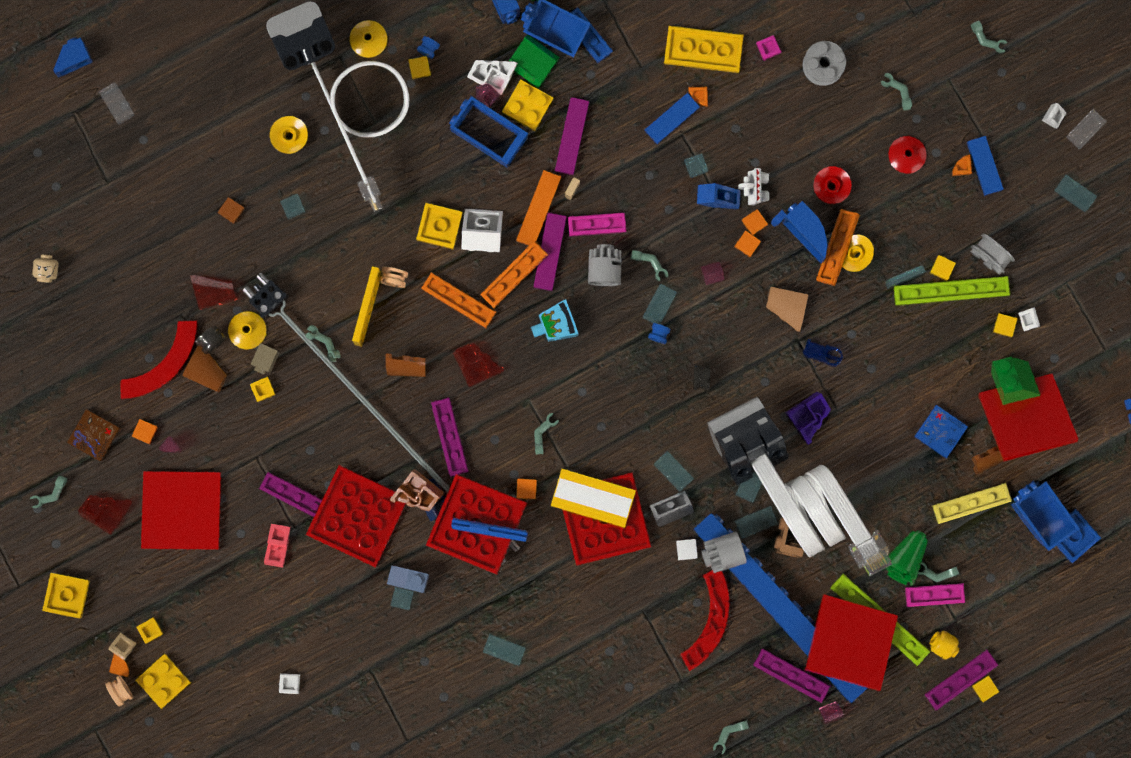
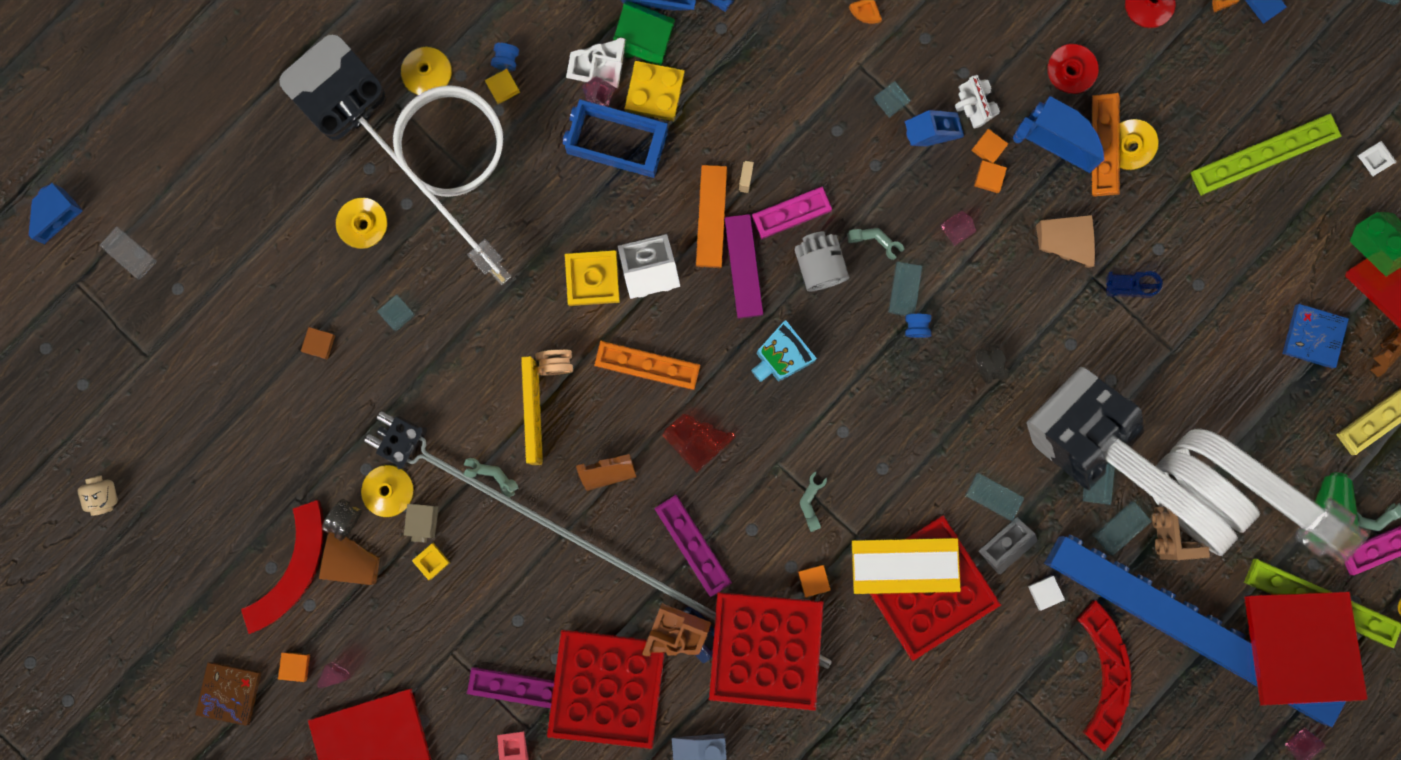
camera: 15 degrees left, 0 degrees up
(212, 291) = (326, 455): clear red slope -> none
(489, 529) = (787, 654): blue axle -> none
(514, 274) = (708, 309): orange tile -> none
(571, 136) = (723, 112): magenta tile -> none
(672, 118) = (842, 50): blue tile -> none
(724, 552) = (1105, 585): light grey gear -> none
(791, 675) = (1236, 713): magenta tile -> none
(808, 415) = (1143, 369): dark purple slope -> none
(908, 275) = (1203, 154): clear light blue tile -> none
(942, 267) = (1244, 129): yellow tile -> none
(992, 254) = (1307, 89): light grey wheel -> none
(1005, 325) = (1347, 176): yellow tile -> none

